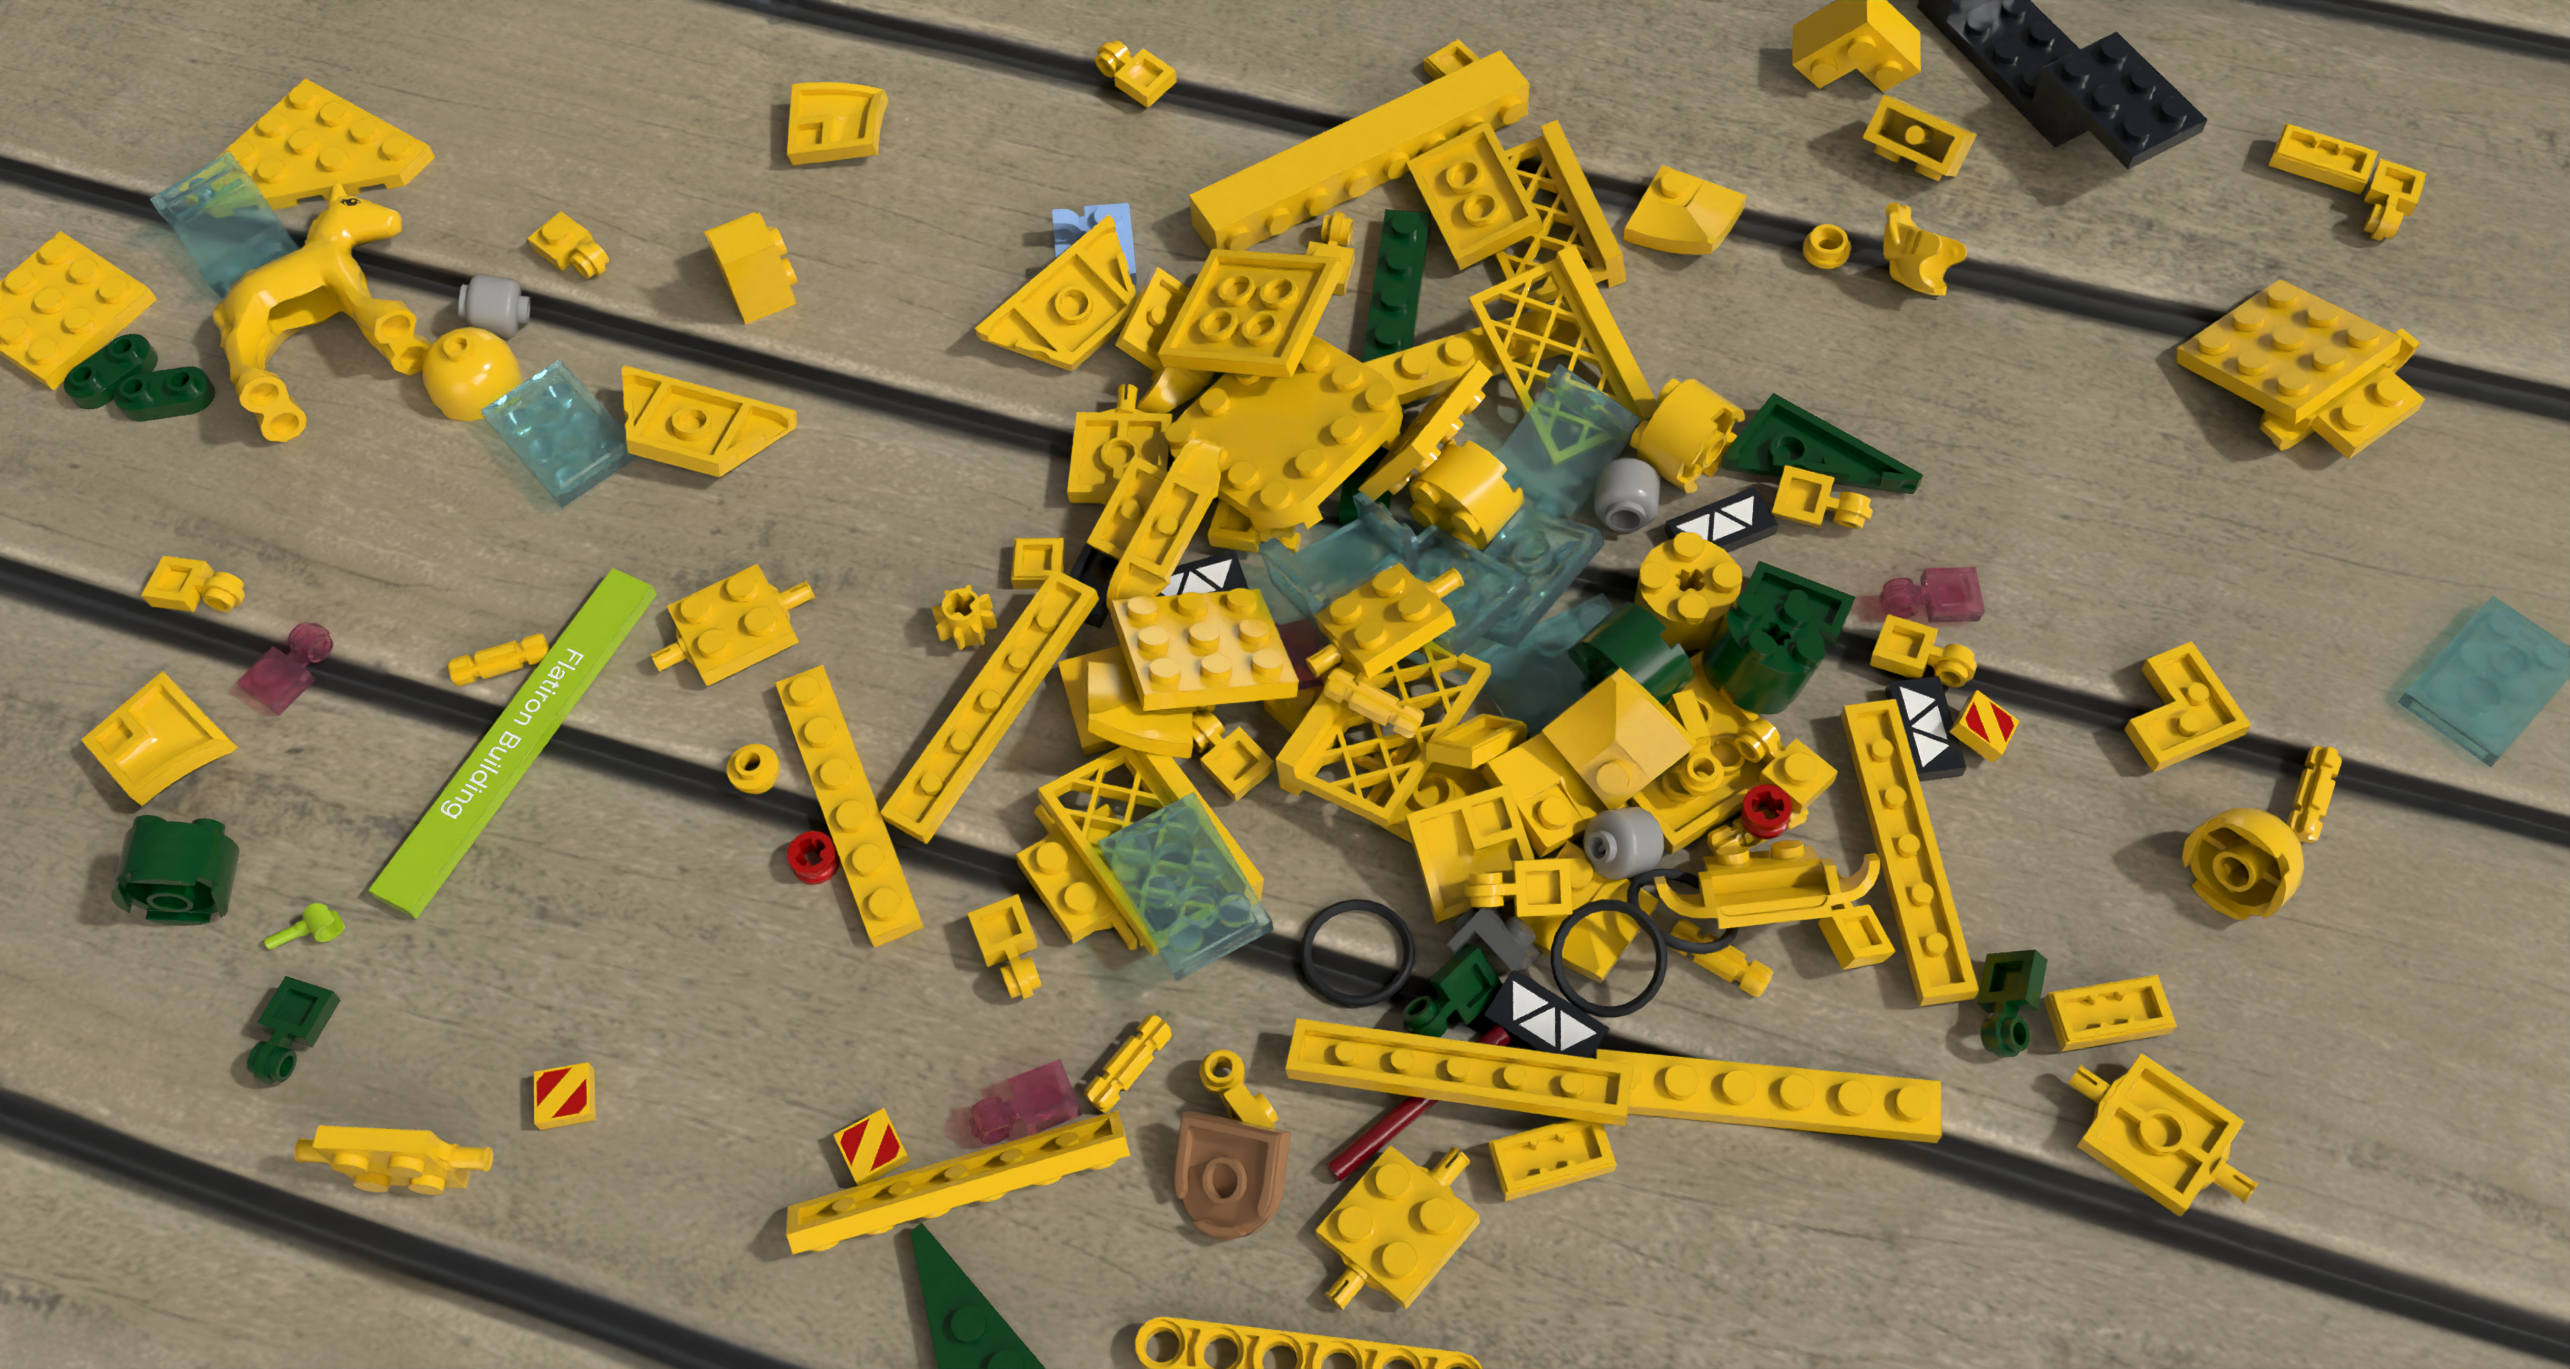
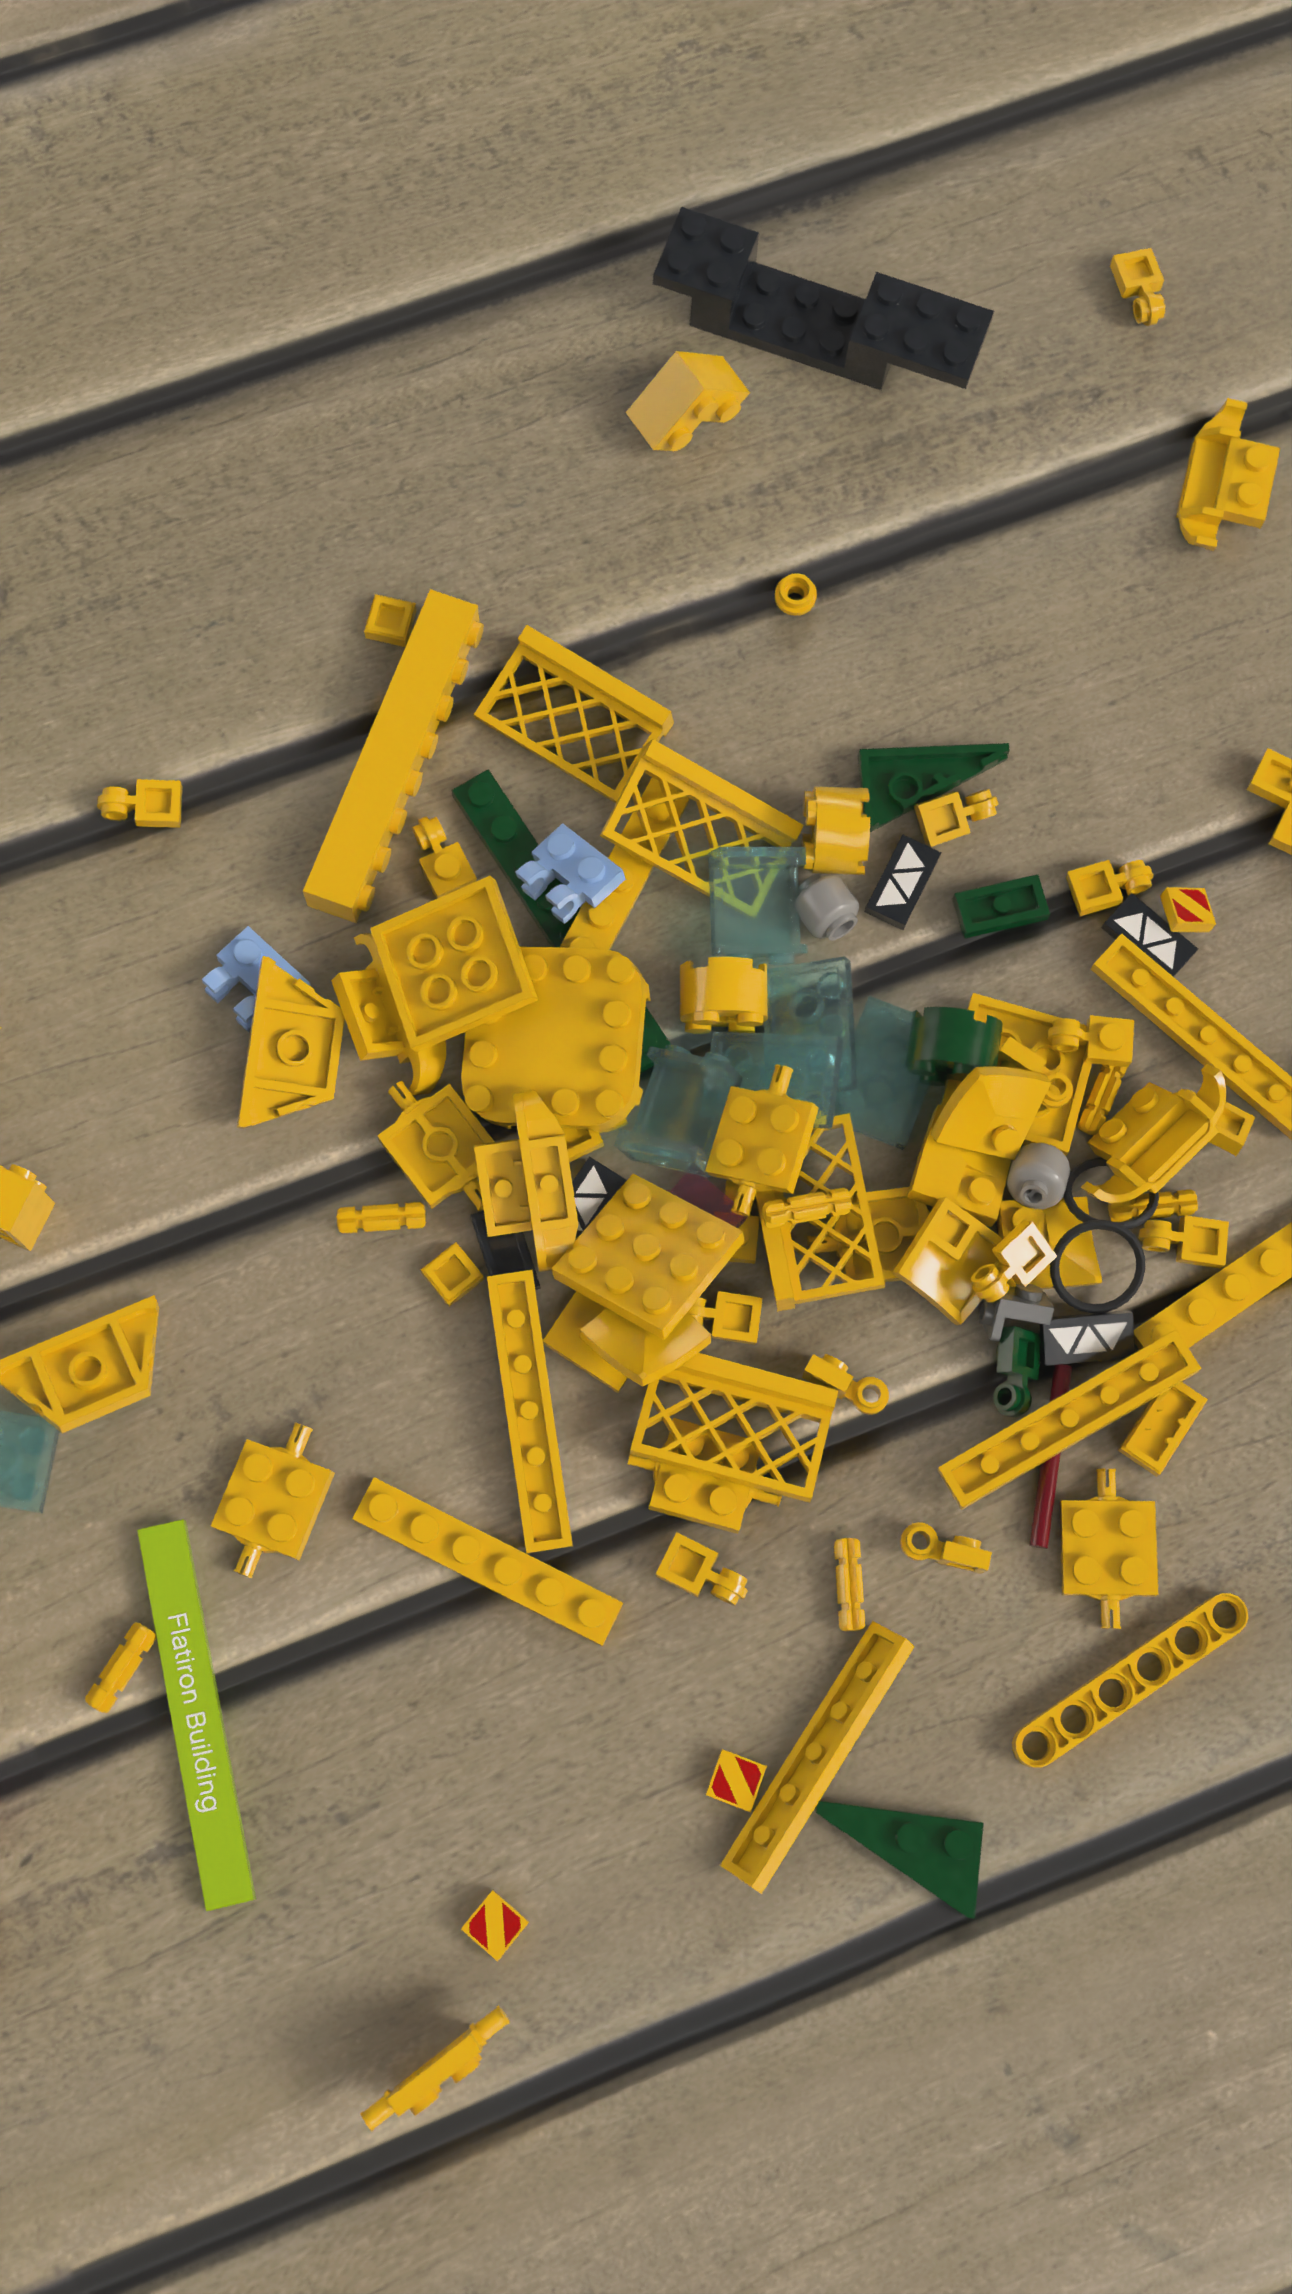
camera: 50 degrees left, 15 degrees up
(176, 870) = (57, 2022): dark green brick -> none
(293, 1015) = (247, 2038): dark green plate -> none
(317, 919) = (191, 1961): lime hand -> none
(756, 780) = (412, 1597): yellow plate -> none
(802, 868) = (515, 1612): red bush -> none
(964, 617) = (438, 1350): yellow gear -> none
(1023, 479) = (381, 1217): none -> yellow axle
(1039, 1097) = (818, 1657): clear pink plate -> none
(1185, 886) = (796, 1439): clear light blue plate -> none
(1229, 1173) = (986, 1604): medium nougat tile -> none
(1277, 871) = (833, 1374): none -> yellow plate
(1357, 1000) = (967, 1379): black tyre -> none
(1429, 315) = (578, 865): none -> light blue plate
(1434, 424) = (661, 950): yellow plate -> none
(1475, 195) = (514, 732): yellow plate -> none
(1476, 741) = (889, 1178): yellow tile -> none
(1683, 214) = (673, 637): yellow plate -> none
(1688, 588) = (933, 933): yellow brick -> none
(1737, 1020) = (1198, 1240): none -> yellow plate
(1764, 652) = (1020, 966): dark green brick -> none
(1777, 801) = (1106, 1069): red bush -> none
(1917, 255) = (868, 556): yellow helmet -> none
(1919, 136) = (795, 454): yellow brick -> none
(1945, 592) = (1090, 825): clear pink plate -> none
(2288, 351) = (1167, 467): yellow plate -> none
(2323, 158) = (1072, 279): yellow plate -> none

